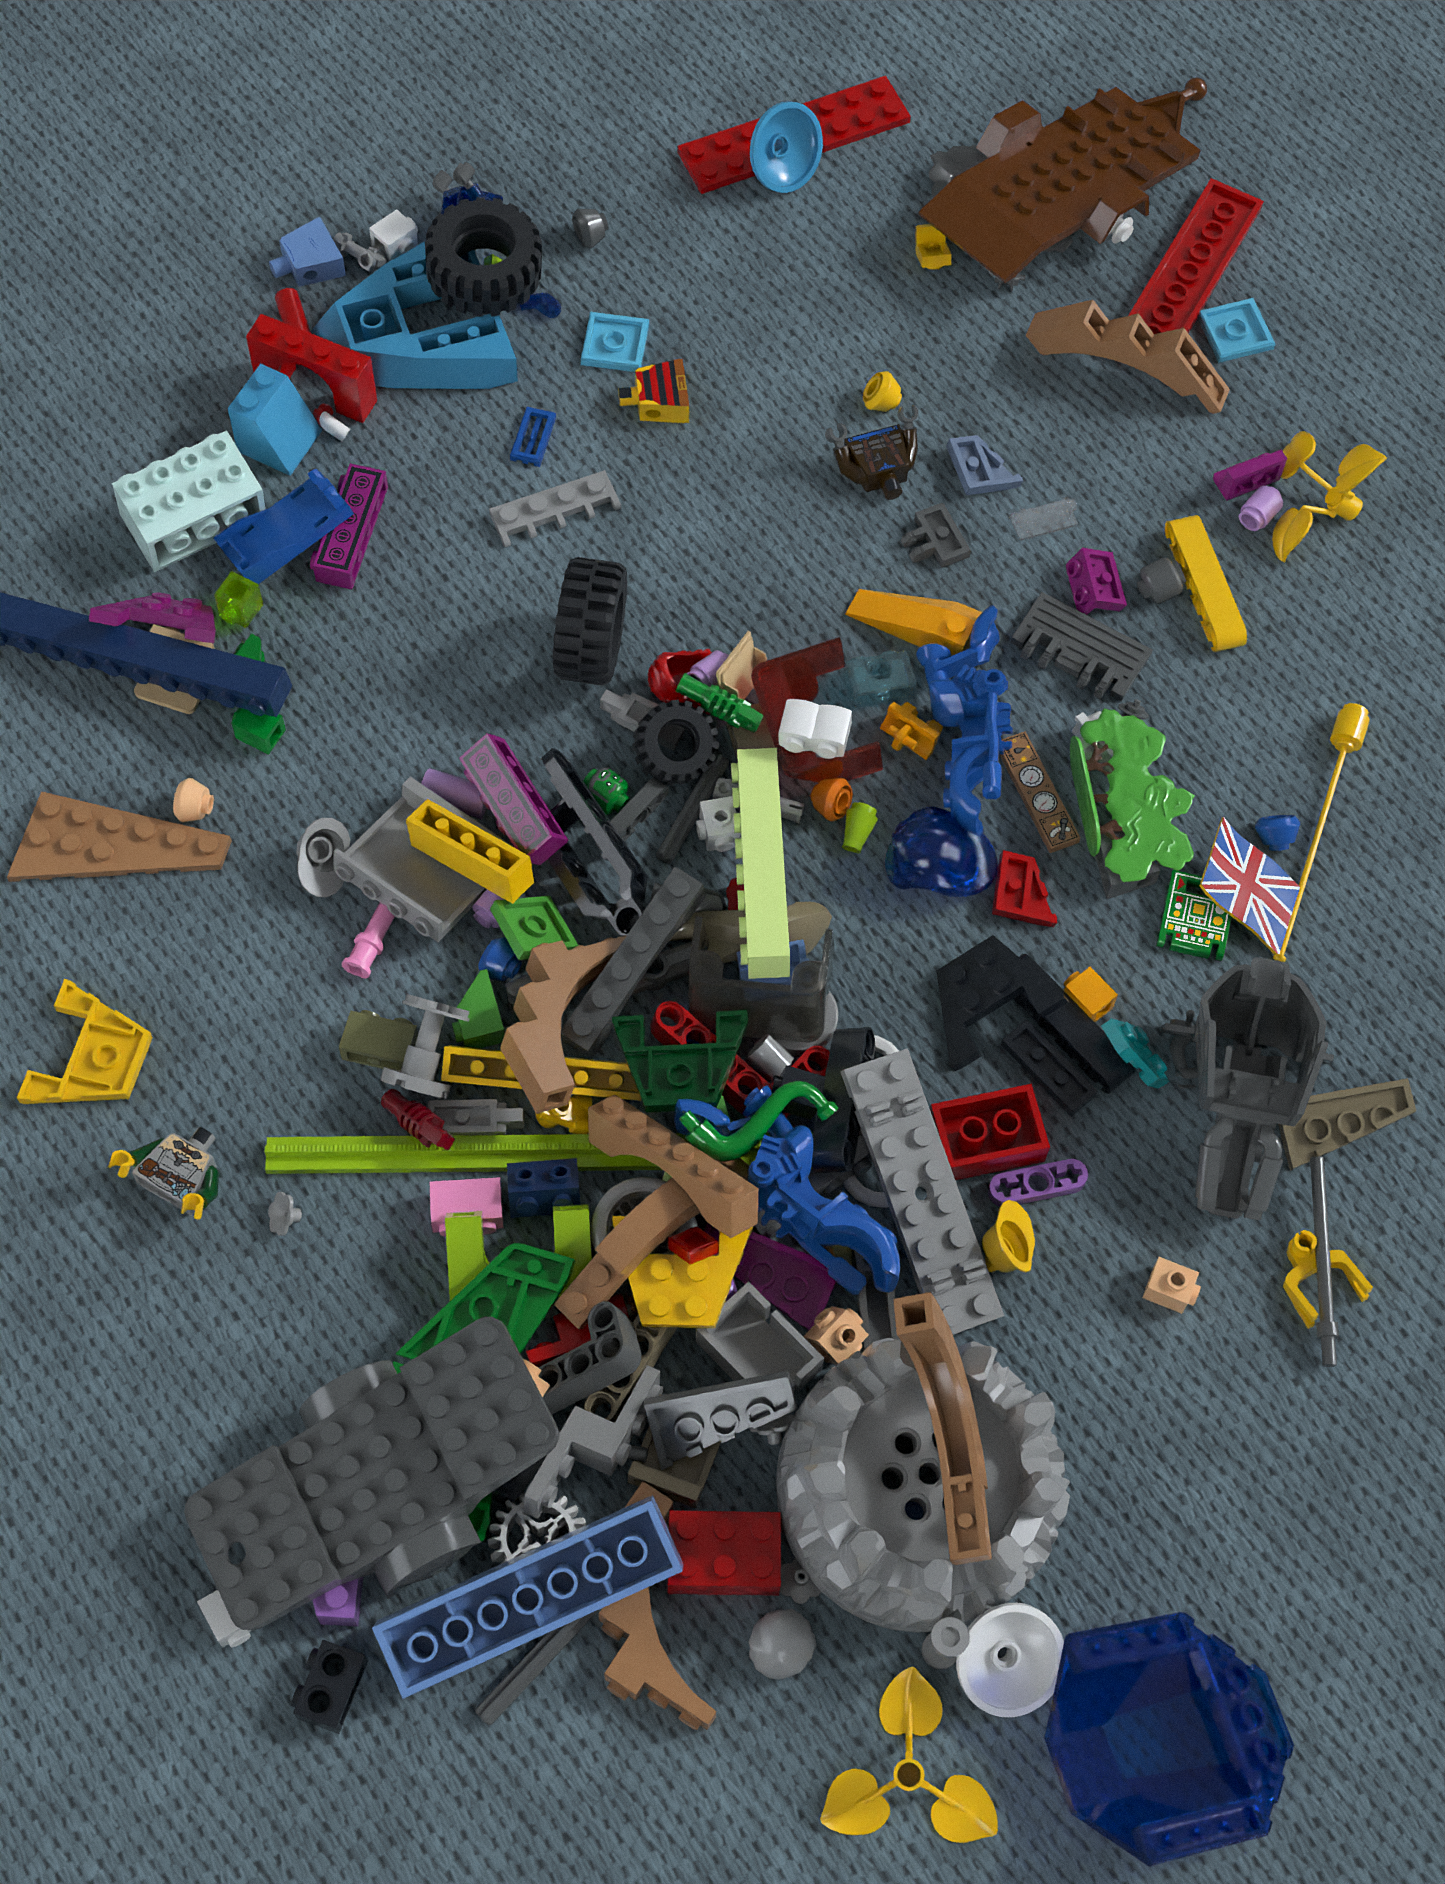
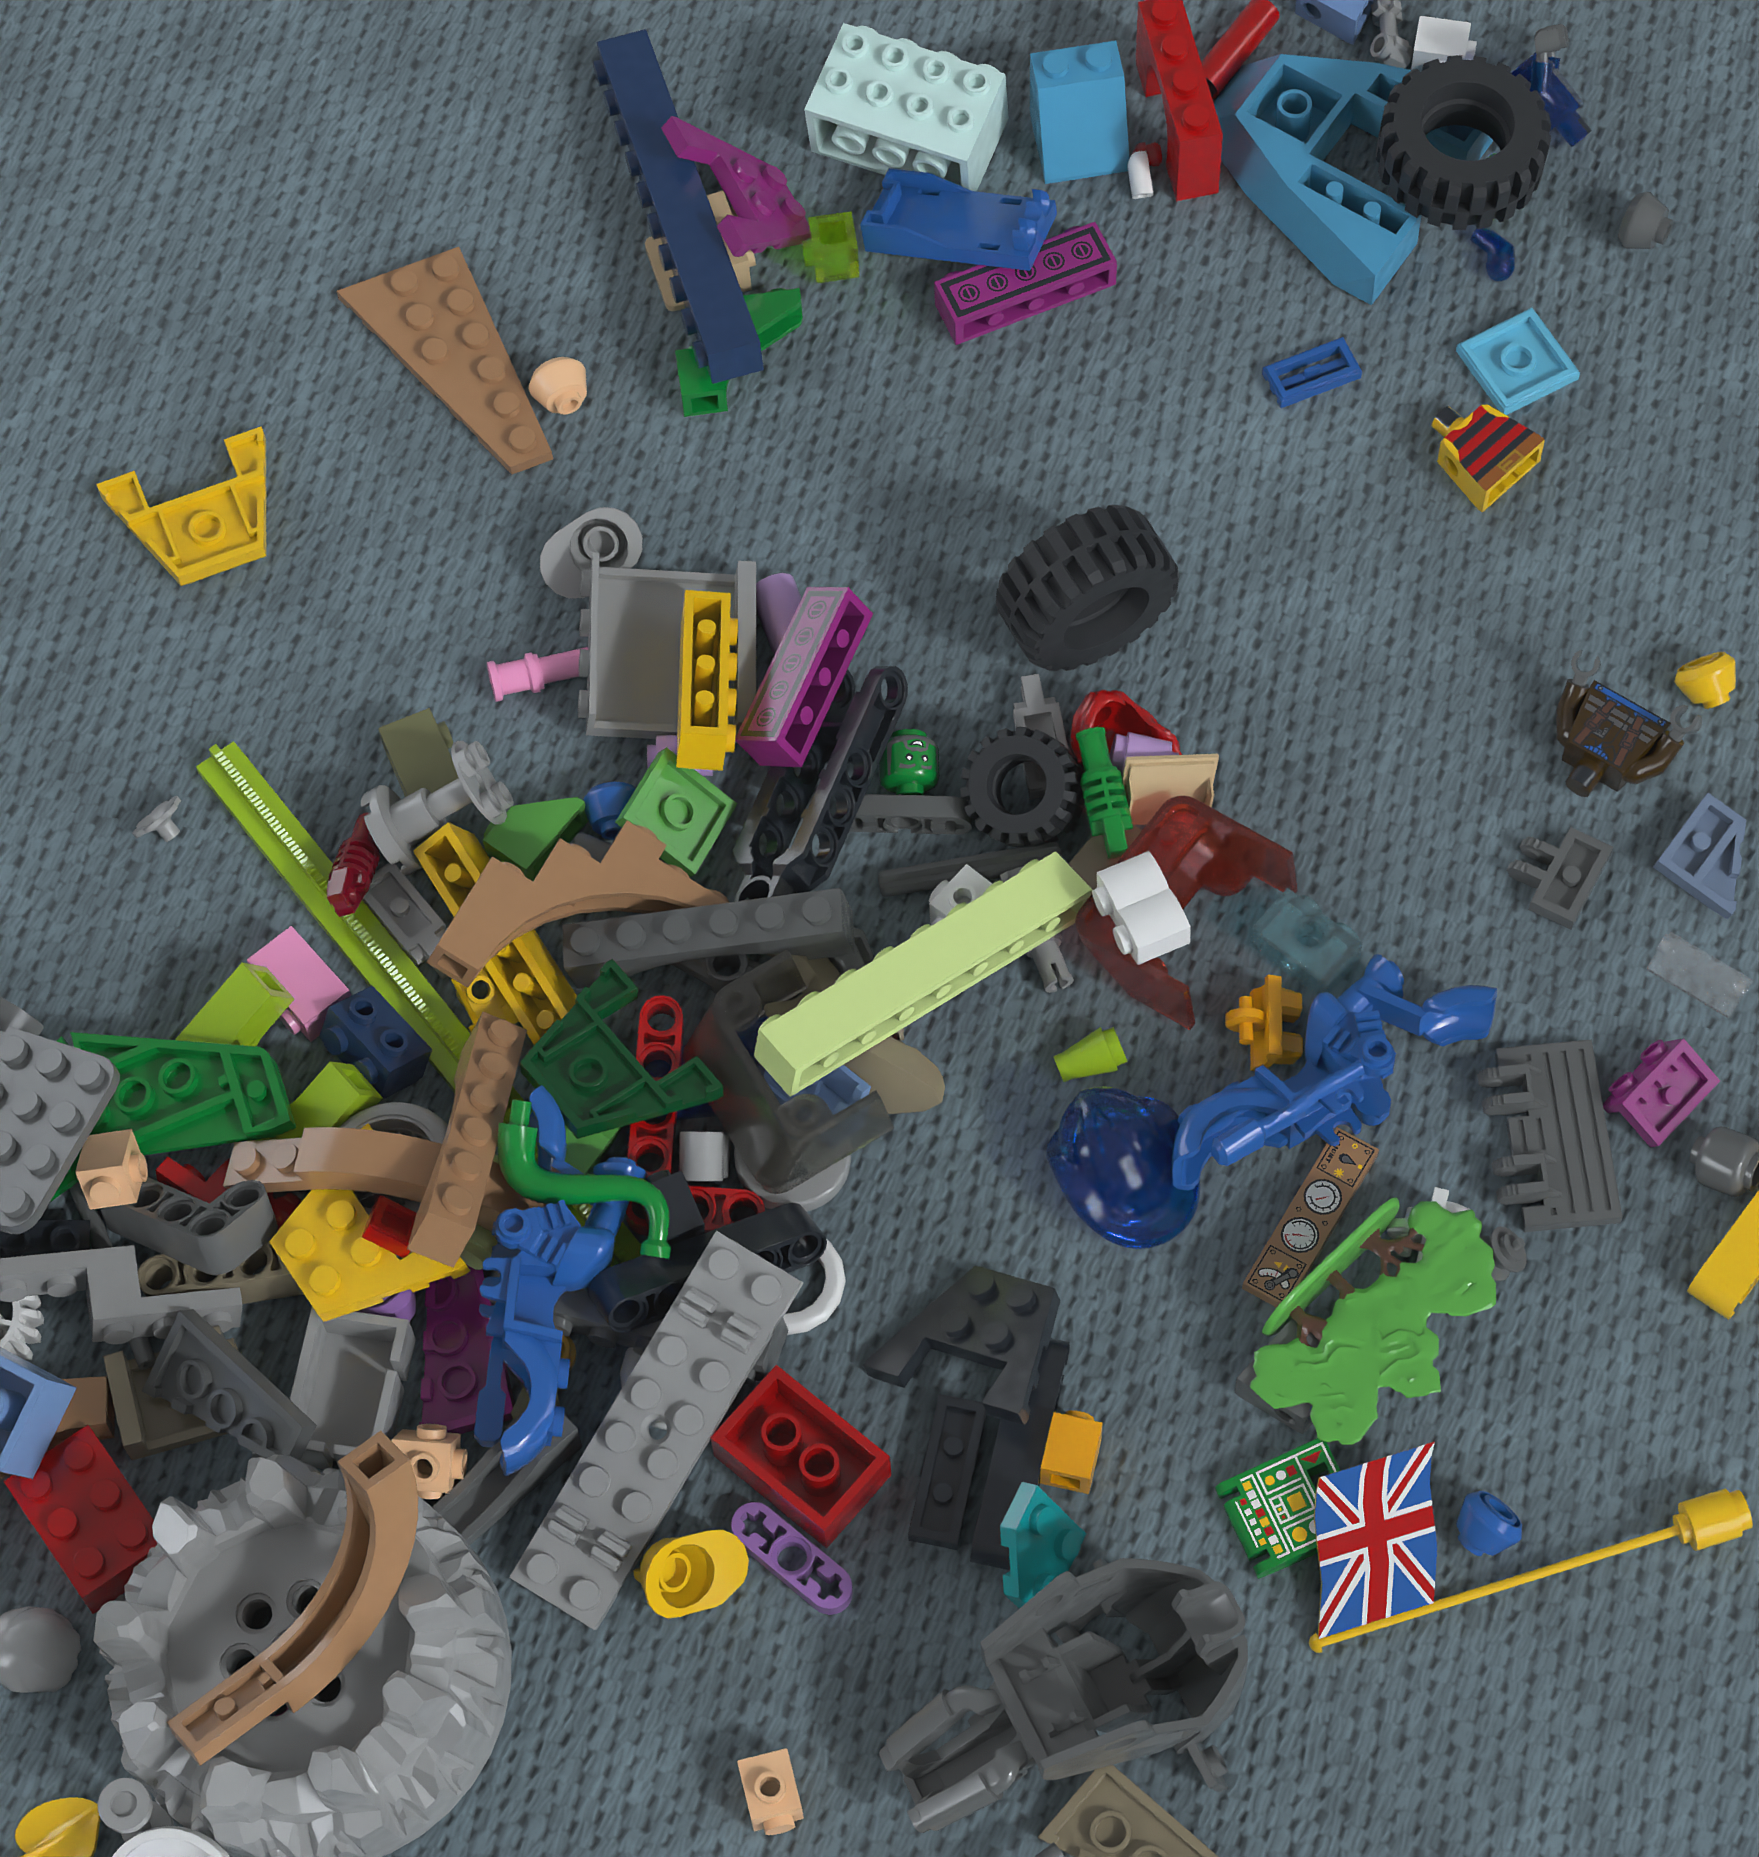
camera: 60 degrees right, 0 degrees up
(174, 1170) = (126, 683): torso -> none
(553, 505) = (1239, 456): light grey hinge -> none
(832, 798) = (1102, 1002): orange cone -> none
(916, 618) = (1430, 928): light orange wedge -> none
(1020, 891) = (1157, 1288): red wing -> none

